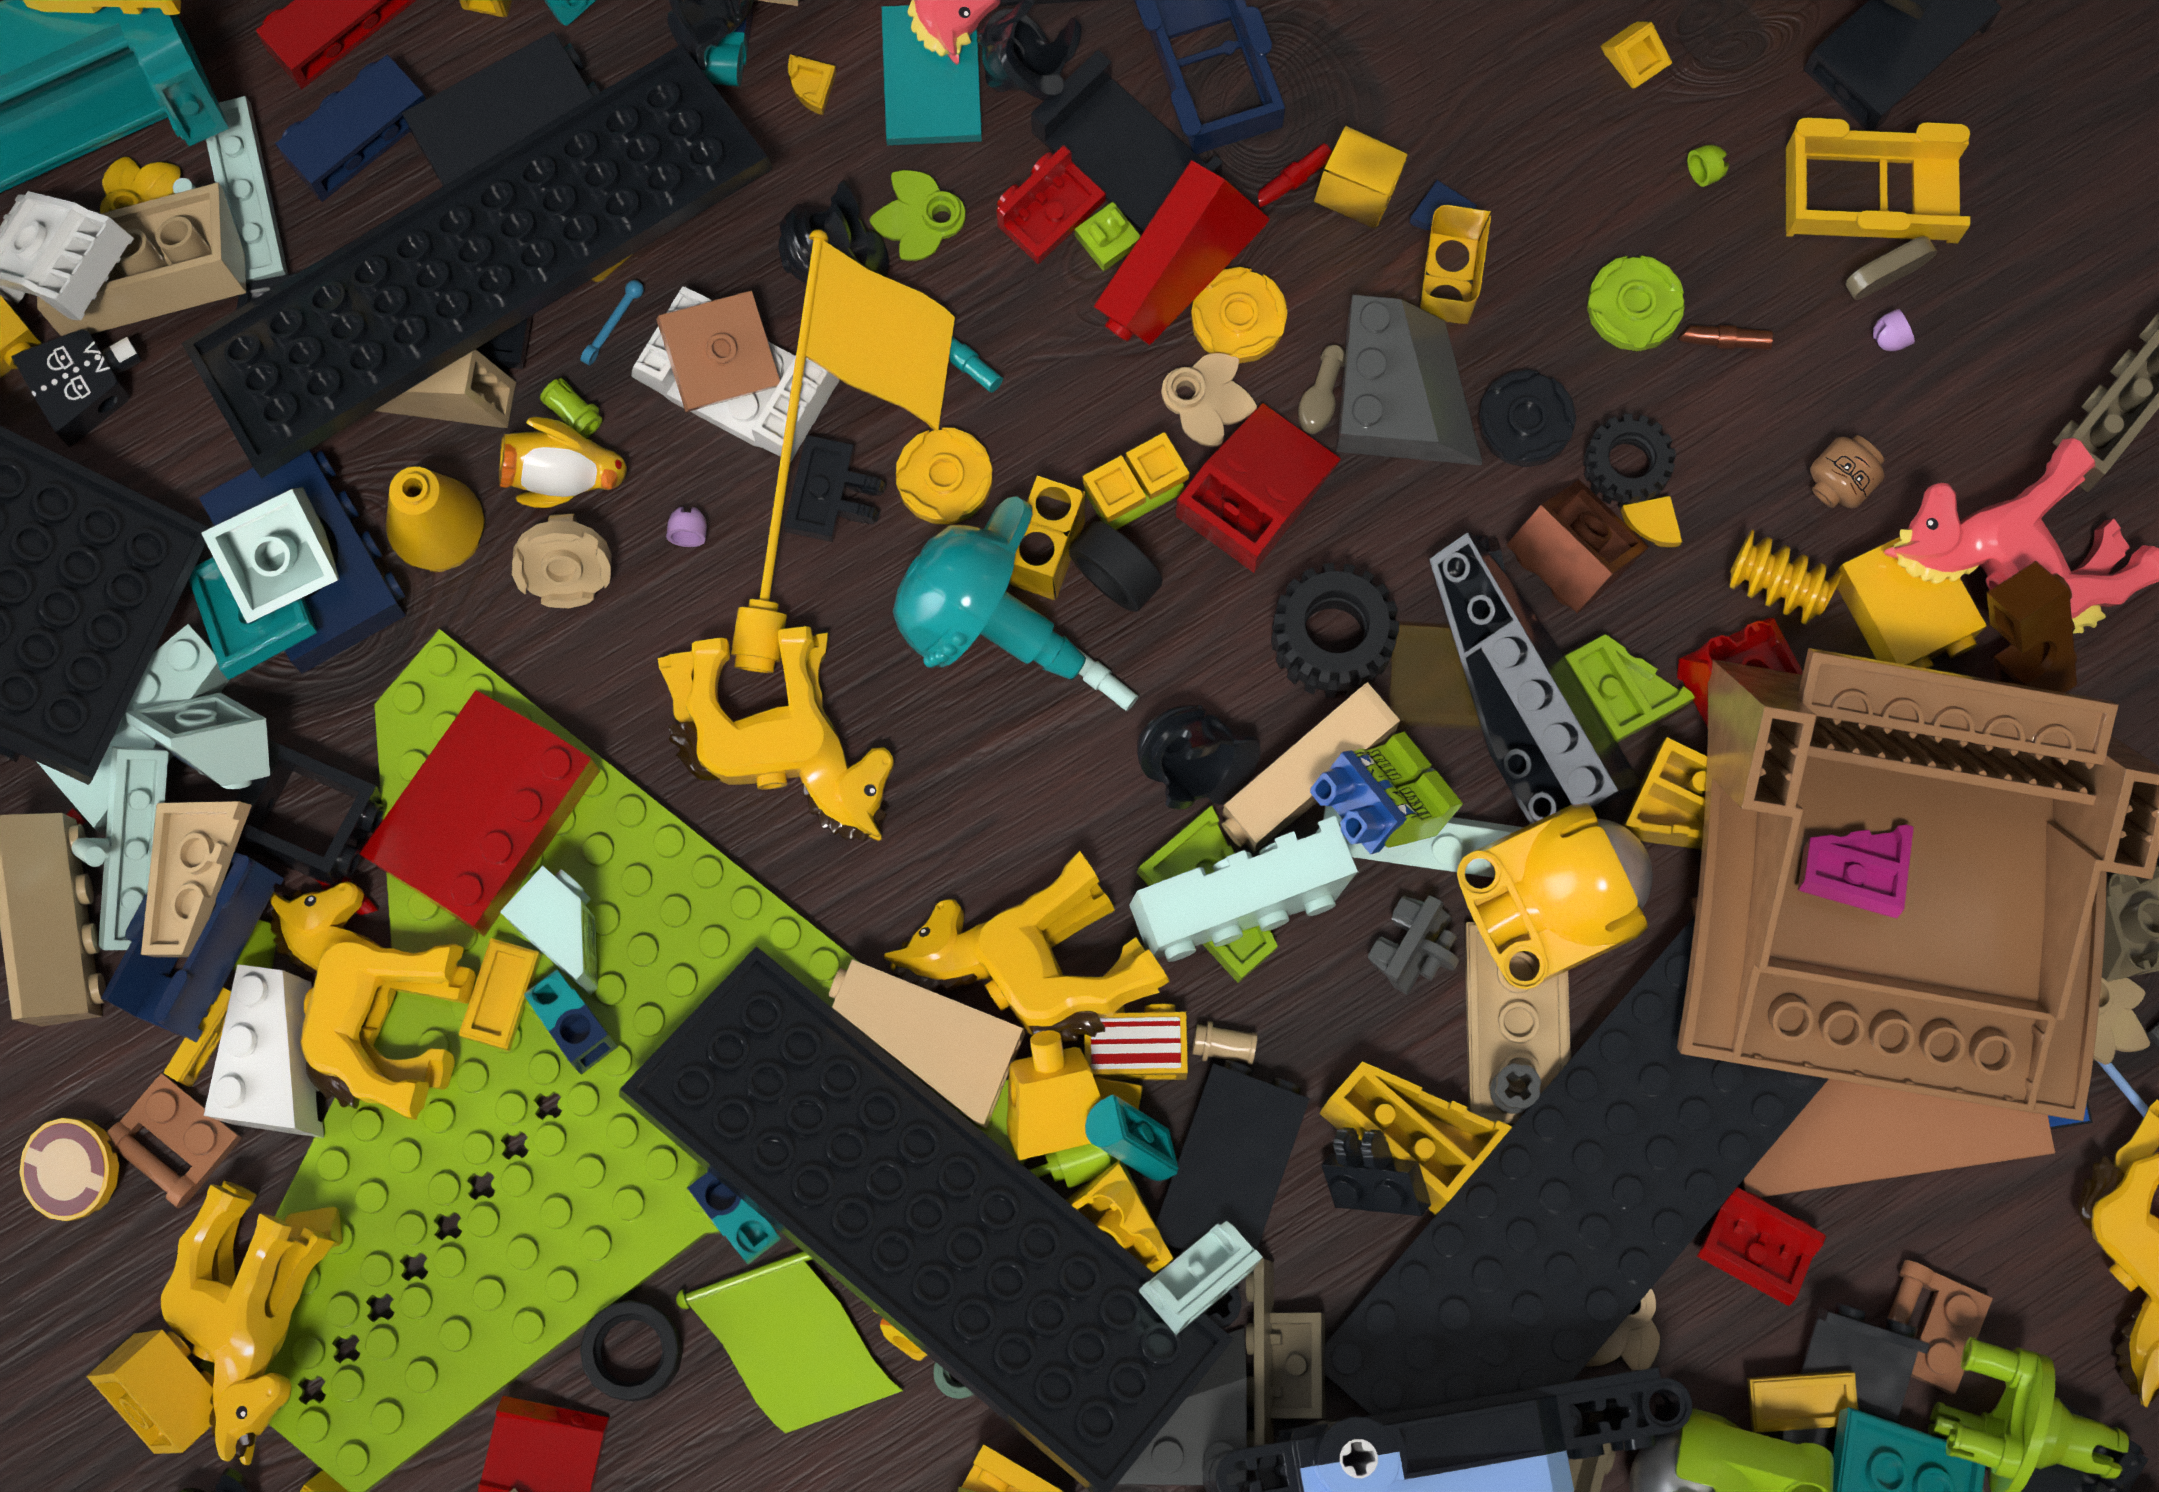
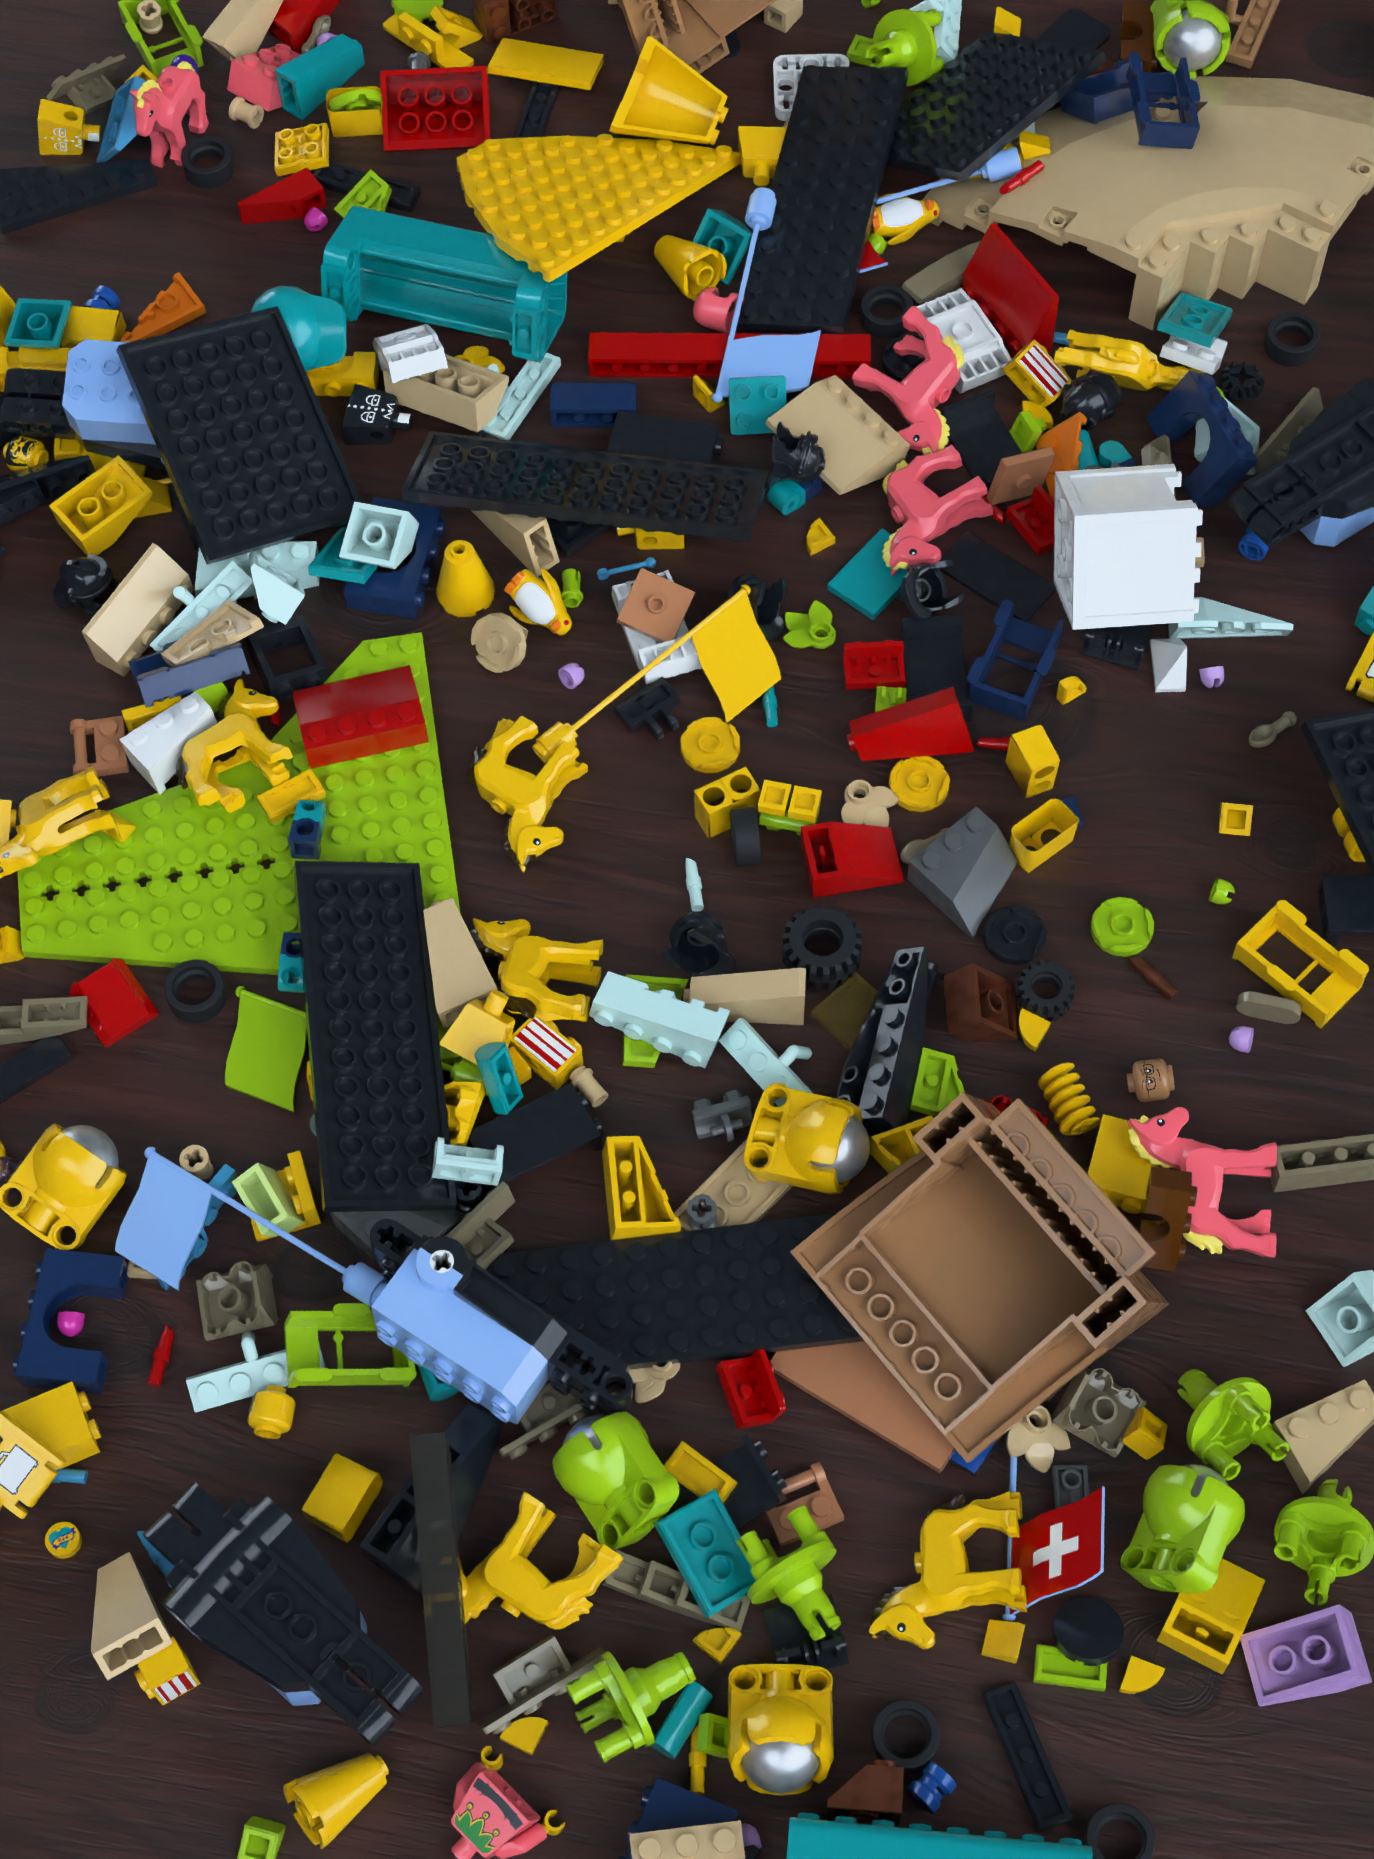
camera: 45 degrees right, 15 degrees down
(69, 1169) = (46, 721): tile -> none
(557, 922) = (342, 780): light aqua slope -> none
(960, 592) = (657, 785): teal piece -> none
(1305, 43) = (1070, 689): none -> yellow tile
(1369, 1179) = (591, 1190): black hinge -> none
(1386, 795) = (765, 1025): hips -> none
(1859, 869) = (962, 1241): dark pink wing -> none

